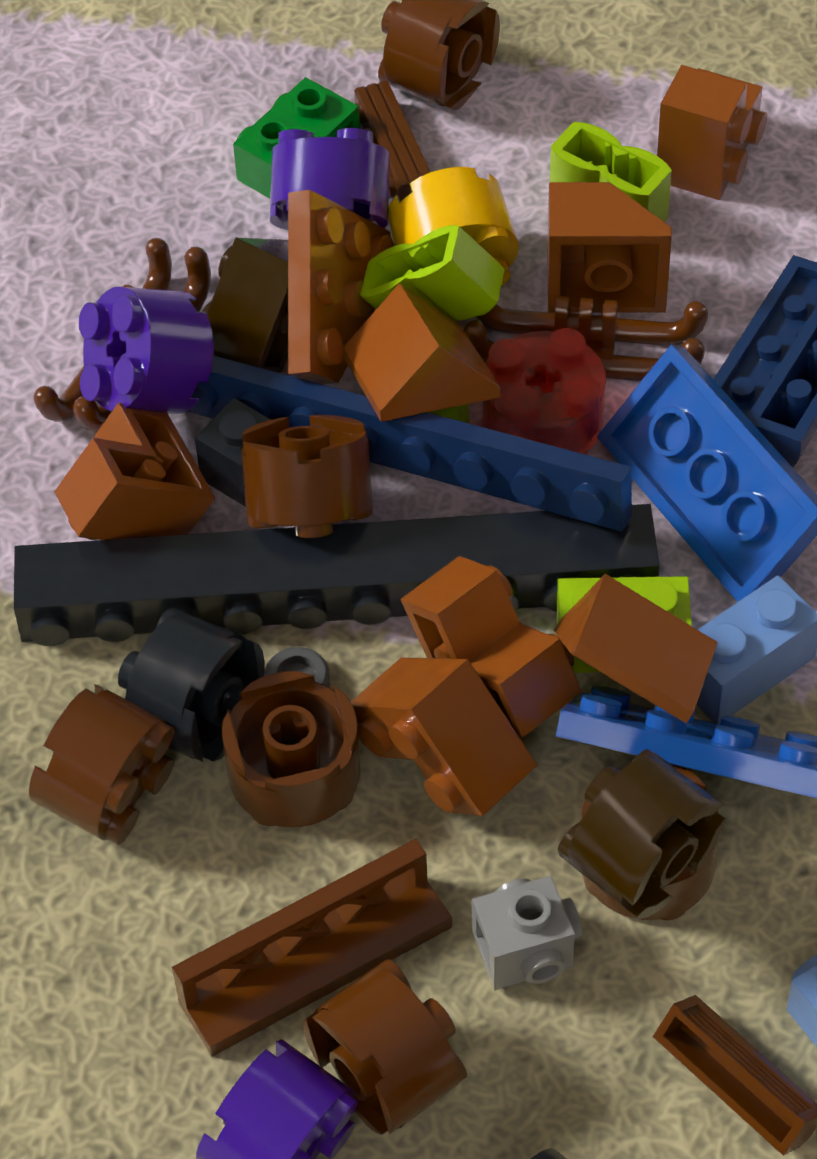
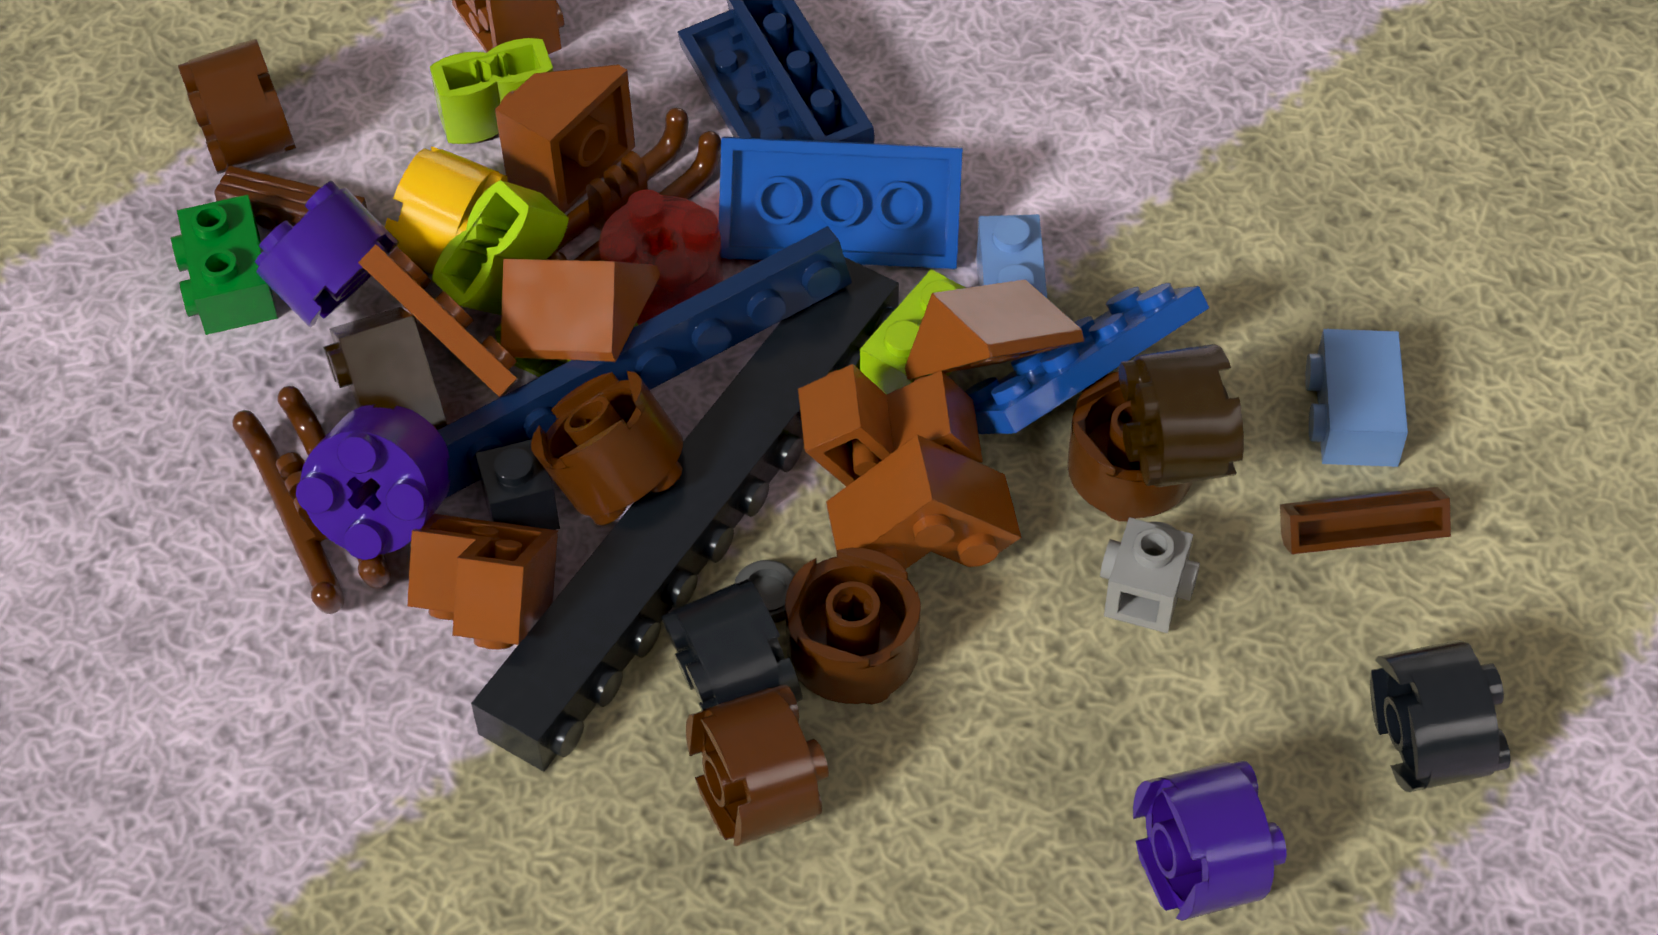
camera: 55 degrees left, 0 degrees up
(371, 918) = (1046, 735): reddish brown fence -> none
(386, 1047) = (1190, 714): reddish brown brick -> none

